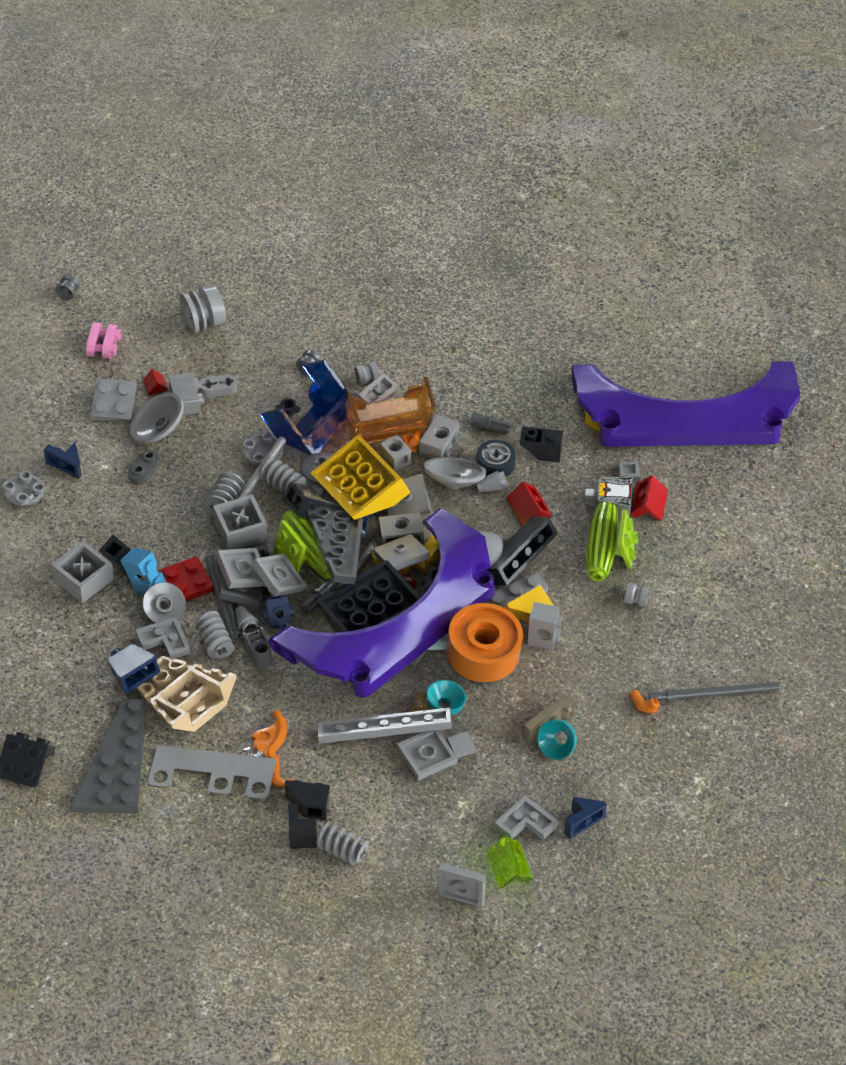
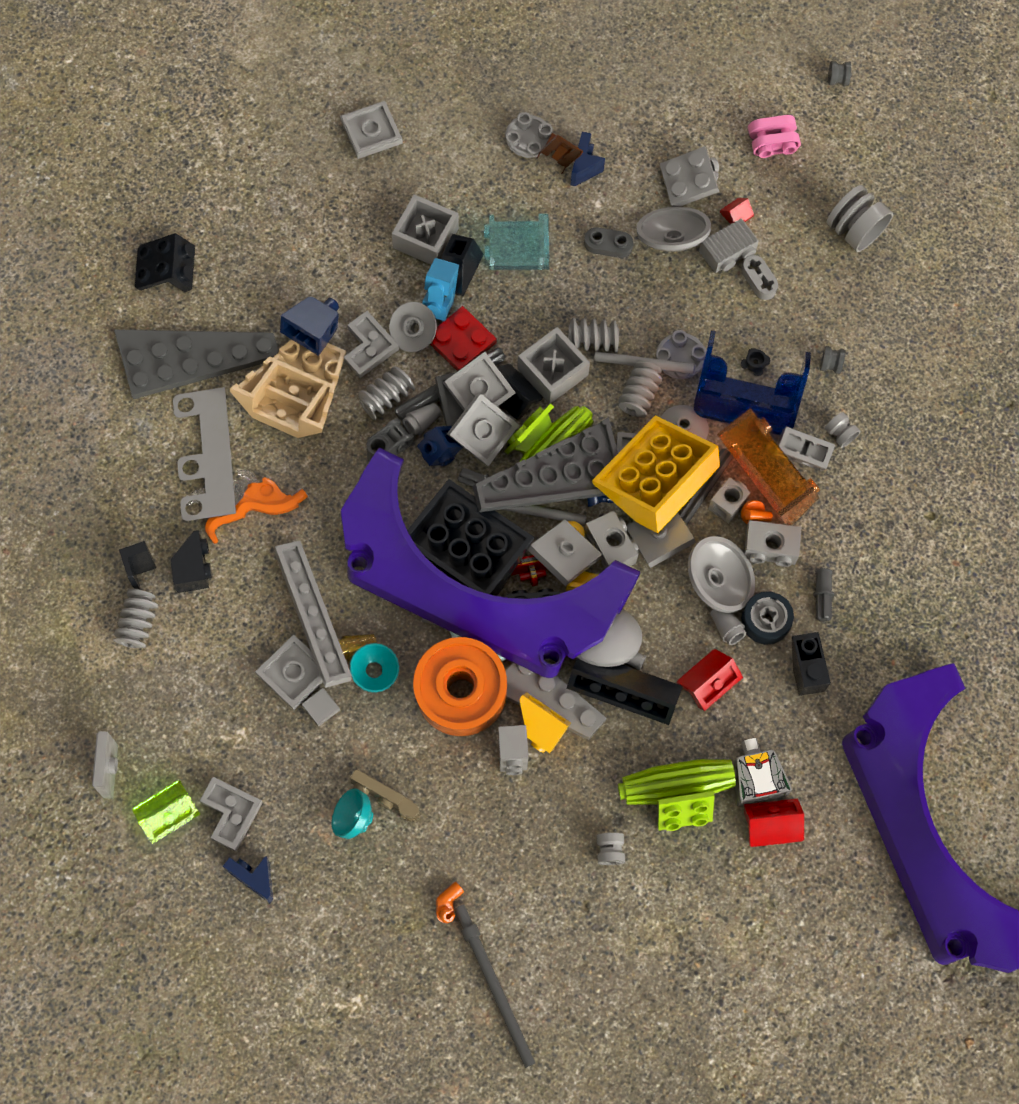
camera: 70 degrees right, 20 degrees up
(44, 474) = (563, 151): none -> reddish brown piece
(120, 517) = (517, 244): none -> clear light blue panel
(300, 497) = (607, 419): black panel -> none
(629, 469) = (813, 784): light grey tile -> none

